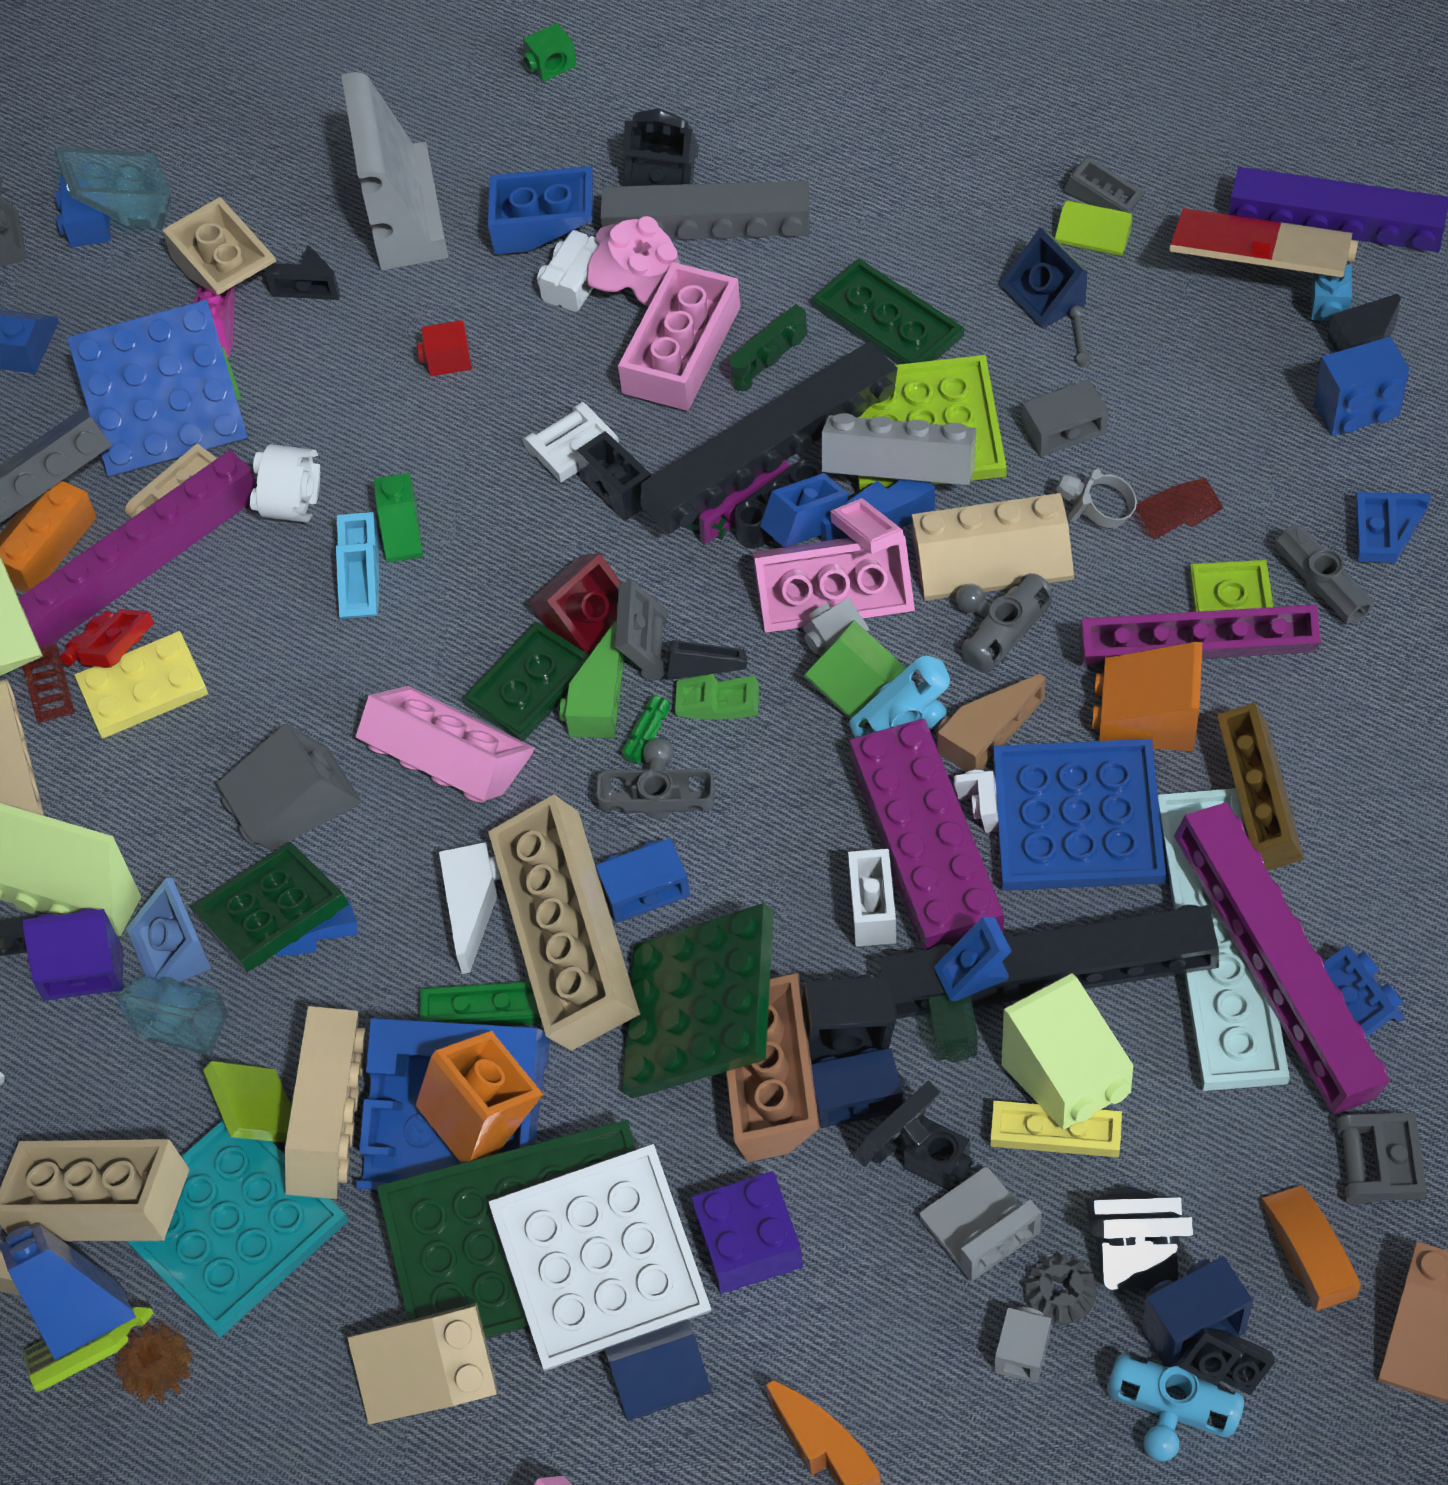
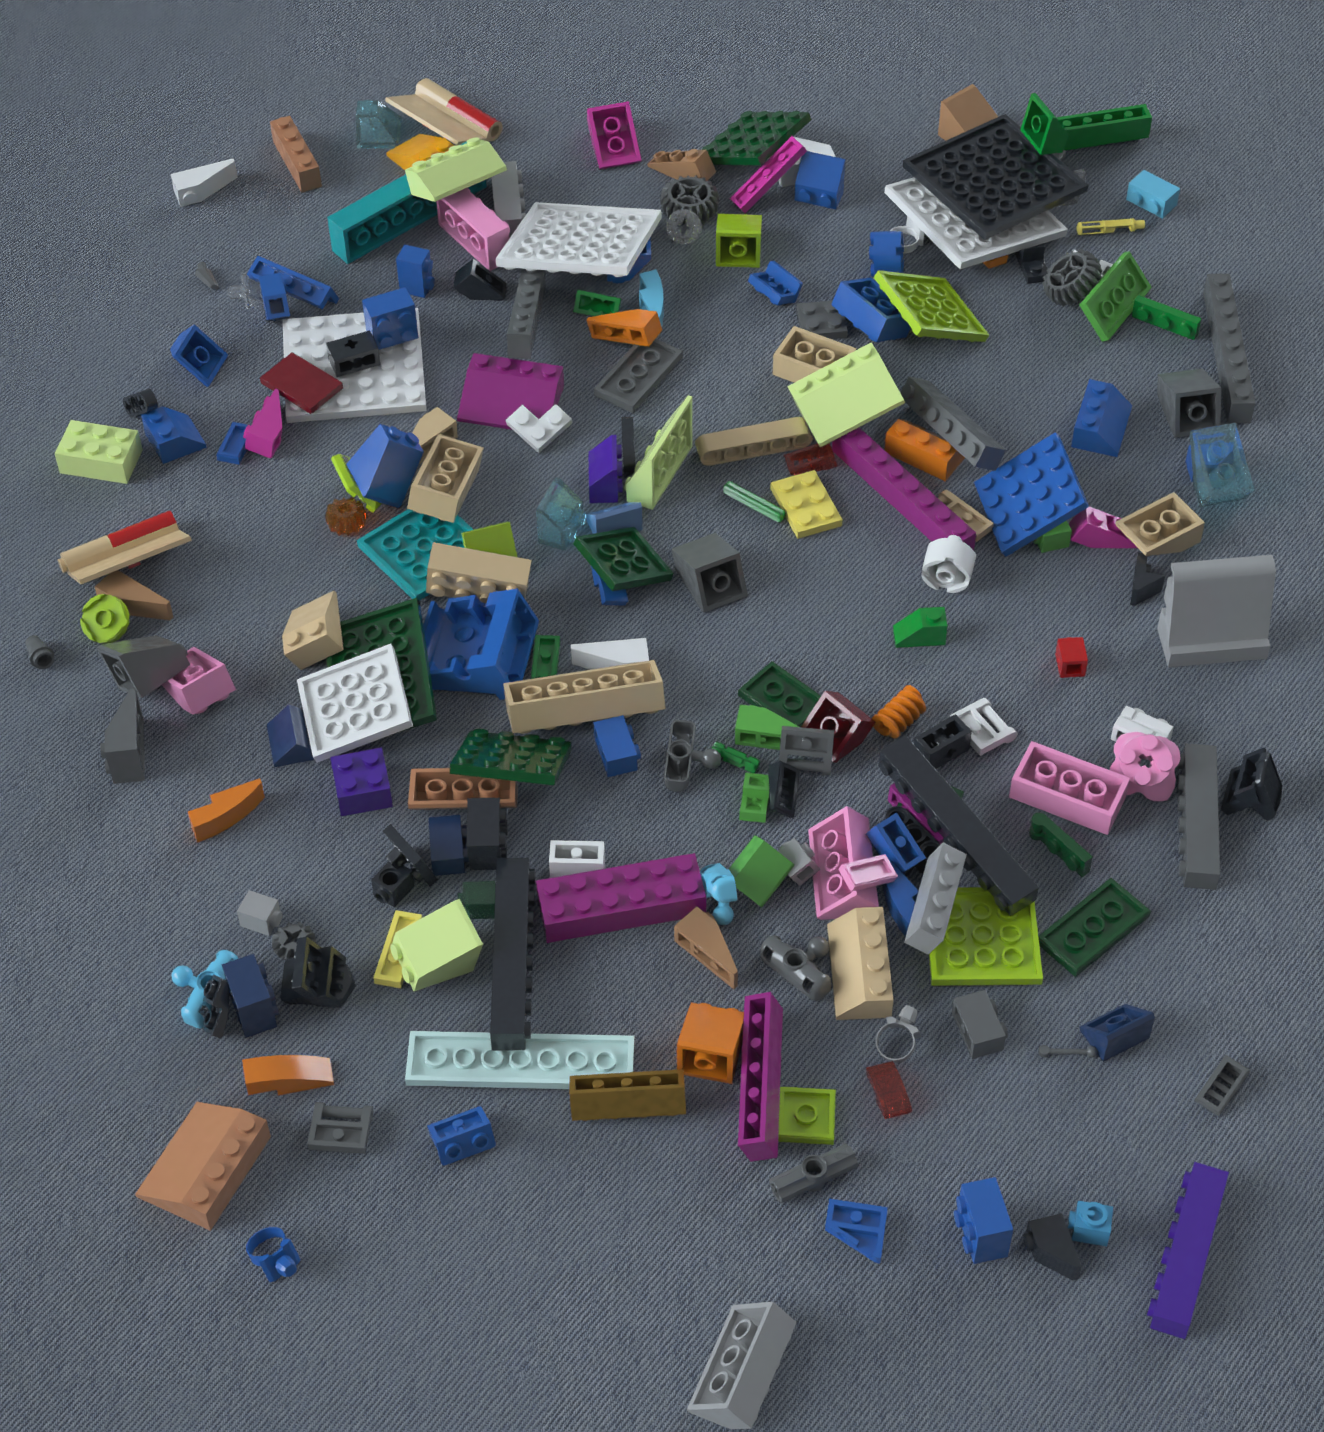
camera: 90 degrees right, 5 degrees down
(107, 638) = (835, 481): red plate -> none
(135, 752) = (754, 501): none -> axle
(357, 565) = (881, 607): medium azure slope -> none
(442, 742) = (737, 649): bright pink slope -> none
(476, 1096) = (452, 631): orange slope -> none
(538, 207) = (1197, 703): blue slope -> none
(557, 529) = (899, 712): none -> orange piece
(975, 961) = (505, 900): blue slope -> none
(981, 788) = (647, 936): white bracket -> none
(981, 1223) = (343, 901): light grey bracket -> none
(1078, 815) = (629, 989): blue plate -> none
(1094, 228) = (1175, 1072): lime slope -> none
(1263, 242) = (1137, 1173): door -> none
(1281, 958) = (487, 1080): magenta brick -> none

